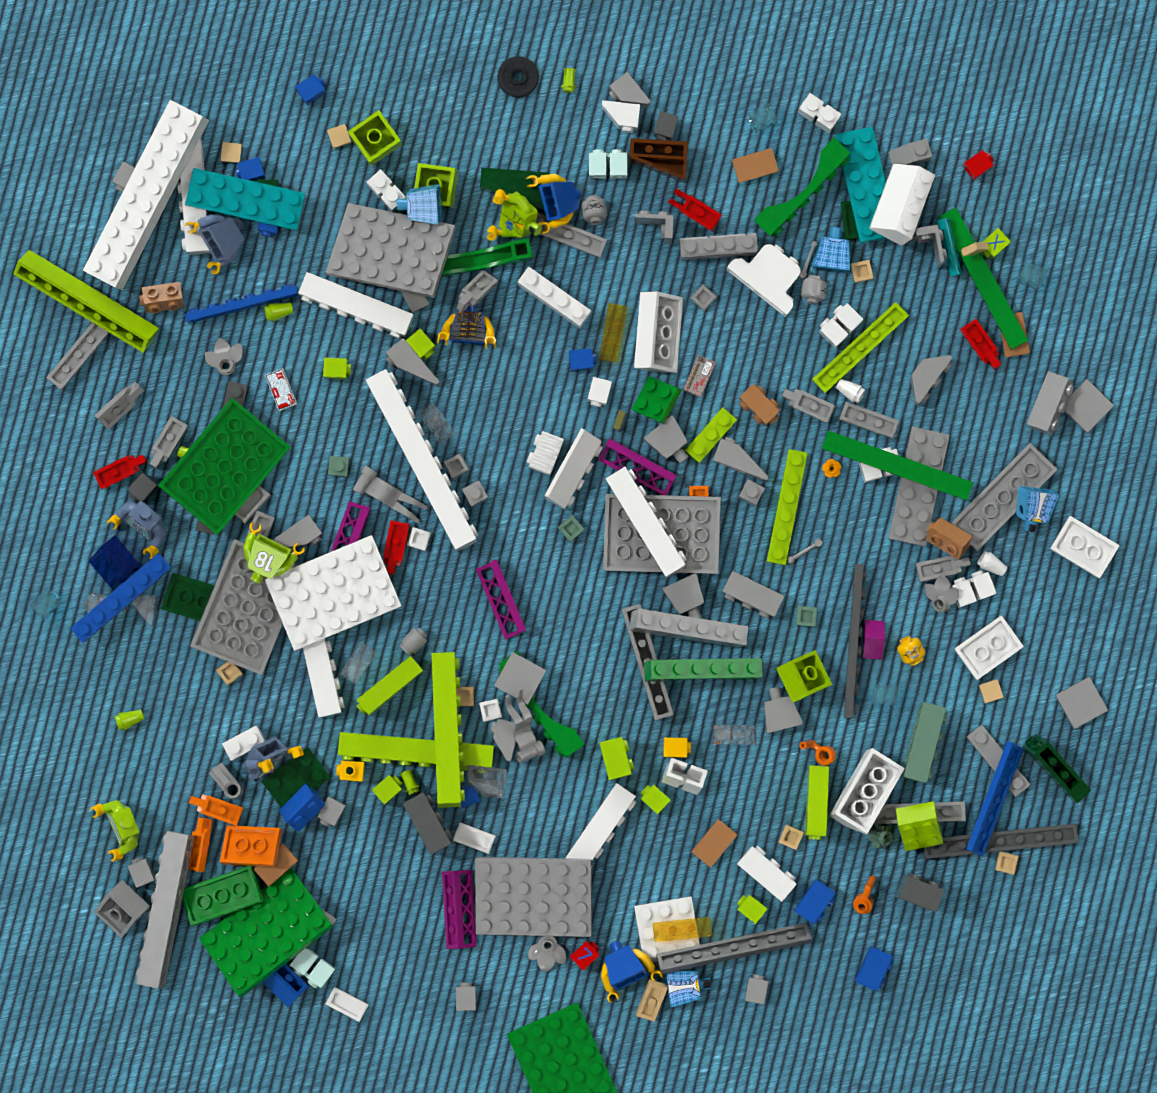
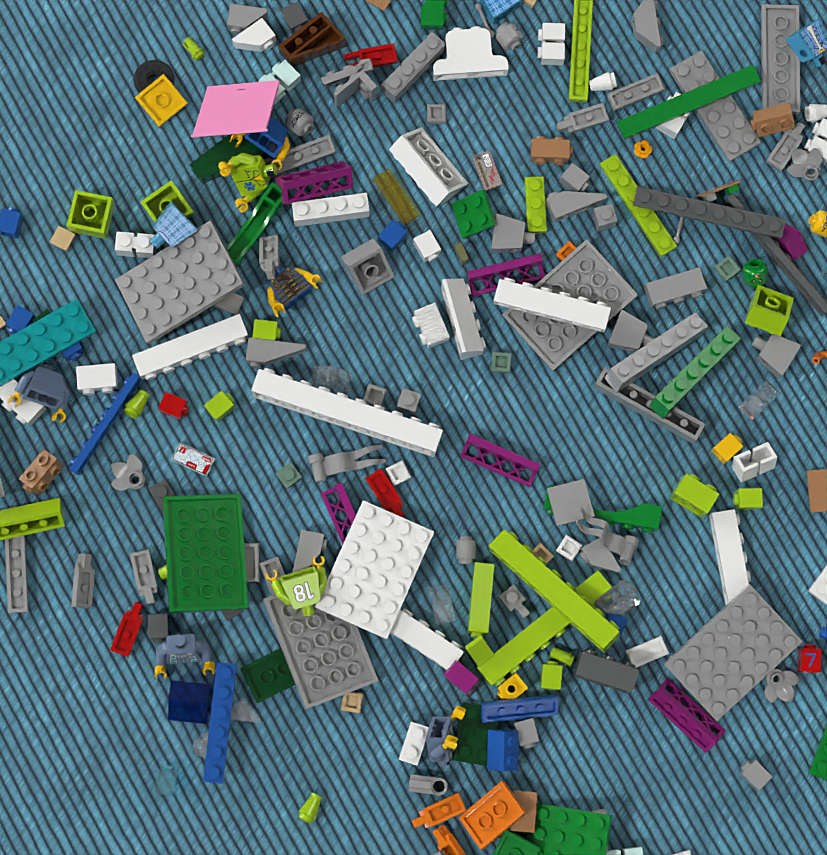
camera: 50 degrees left, 5 degrees down
(267, 265) = (97, 378): none -> white brick
(302, 337) = (173, 406): none -> red brick
(322, 730) = (462, 678): none -> magenta slope
(343, 790) = (519, 708): none -> blue tile
(352, 721) = (479, 650): none -> lime slope
(414, 708) = (513, 600): none -> light grey plate
(507, 98) = (161, 100): none -> yellow tile
(541, 365) = (367, 266): none -> light grey slope
(553, 158) = (236, 109): none -> bright pink piece
(564, 263) = (312, 176): none -> magenta fence
(665, 206) = (333, 77): none -> light grey hinge
(757, 444) = (575, 179): none -> light grey brick
(822, 639) = (755, 273): none -> green head
(831, 562) = (709, 212): none -> dark grey plate
(846, 549) = (729, 188): none -> piece

